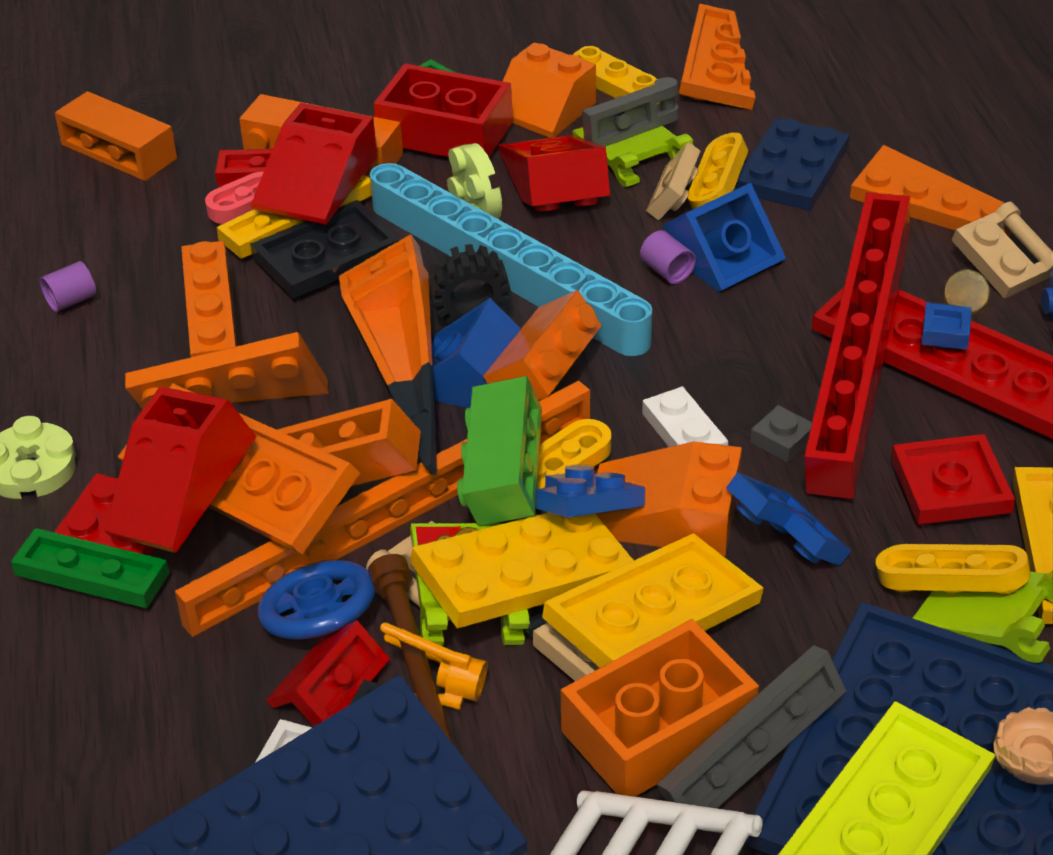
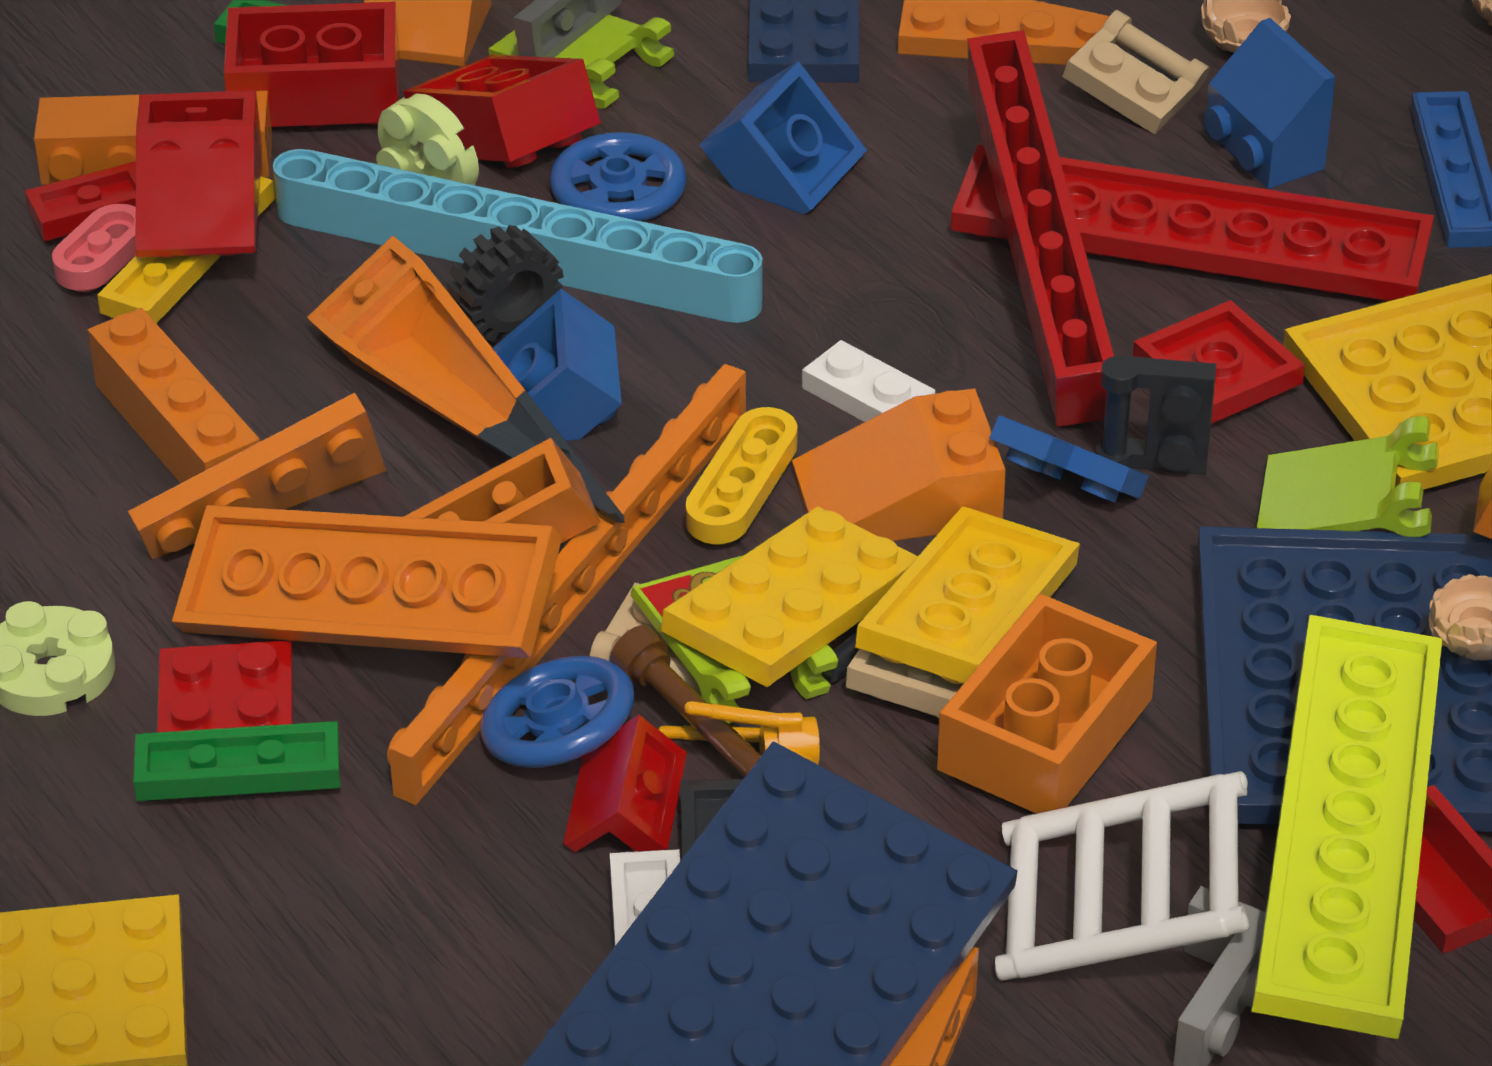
camera: 25 degrees left, 0 degrees up
(175, 466) = (307, 599): red slope -> none
(318, 253) = (263, 296): black plate -> none
(501, 452) = (699, 469): bright green brick -> none
(547, 344) = (654, 339): orange brick -> none
(585, 493) = (822, 495): blue plate -> none
(602, 235) = (619, 176): none -> blue plate
(667, 257) = (724, 184): medium lavender beam -> none
(675, 178) = (673, 84): tan plate -> none
(718, 169) = (721, 57): yellow plate -> none
(756, 732) = (1173, 694): dark grey plate -> none
(781, 433) = (990, 364): dark grey plate -> none
(886, 503) = (1176, 417): none -> black plate
(946, 326) = (1125, 182): blue plate -> none
(953, 568) = (1281, 459): yellow plate -> none
(967, 289) = (1113, 136): clear yellow plate -> none

